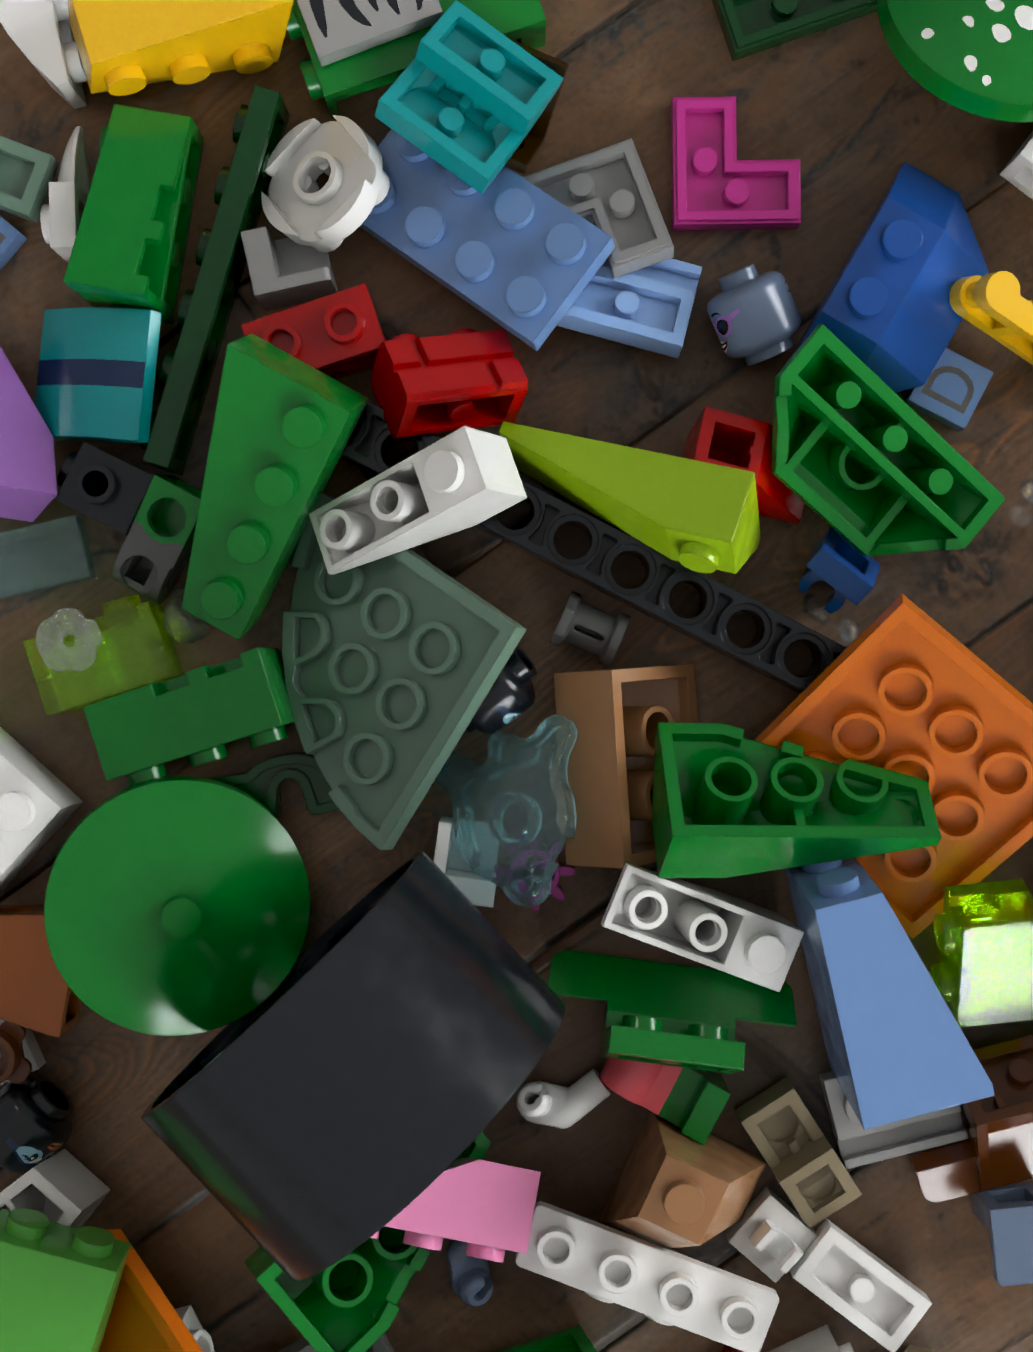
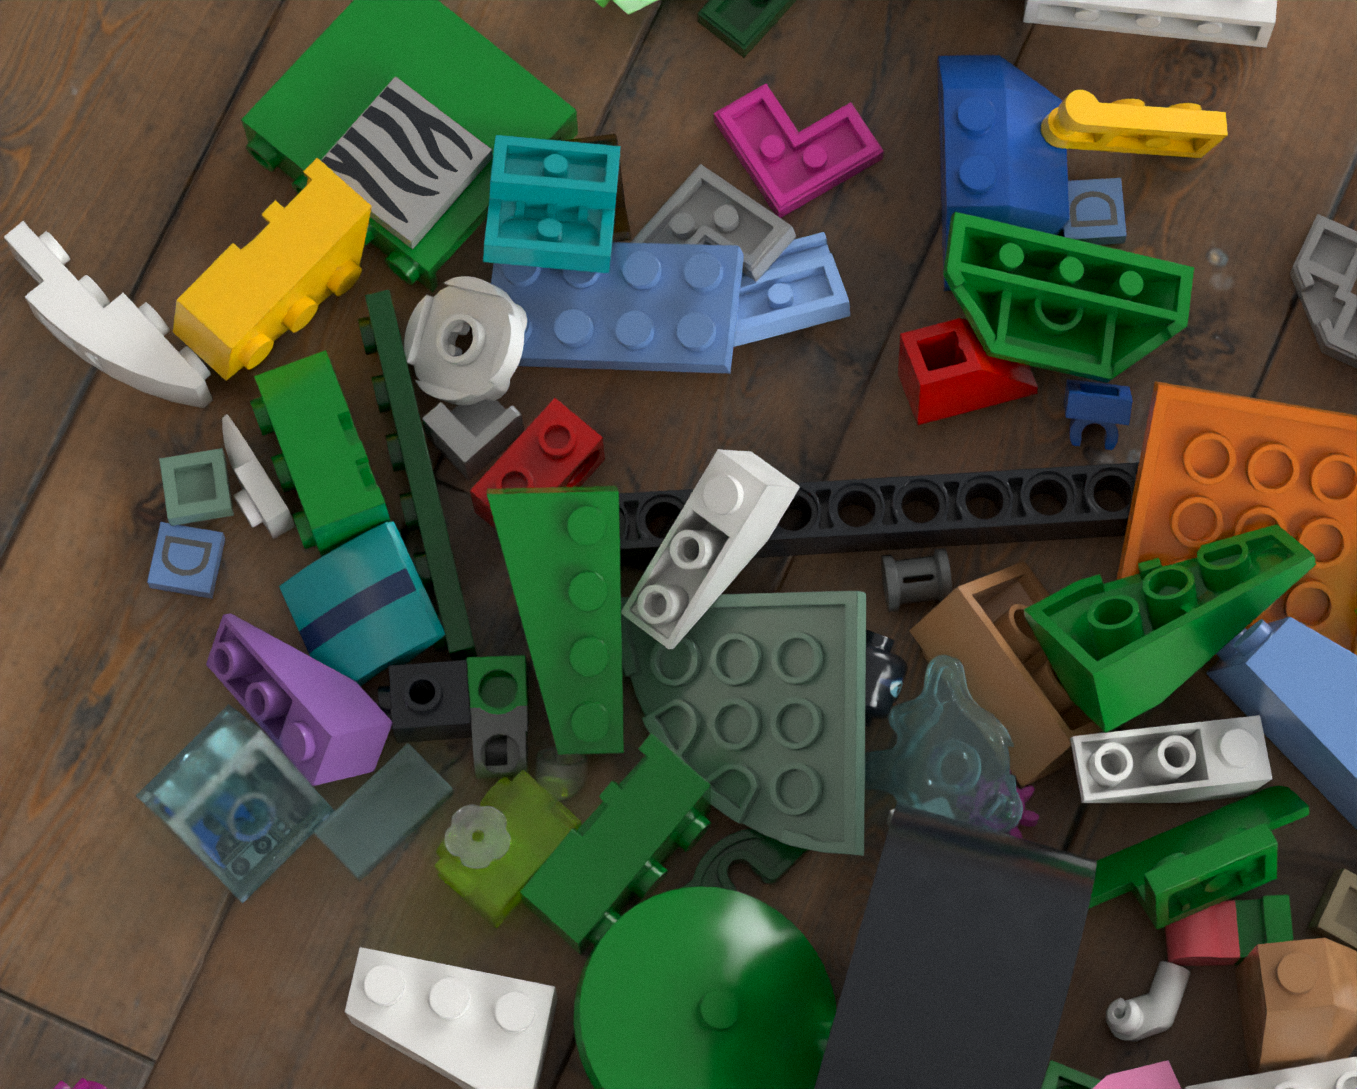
camera: 25 degrees left, 15 degrees down
(448, 381) = (671, 439): red brick -> none
(671, 503) = (906, 430): lime wedge -> none
(754, 314) = (892, 244): sand blue head -> none

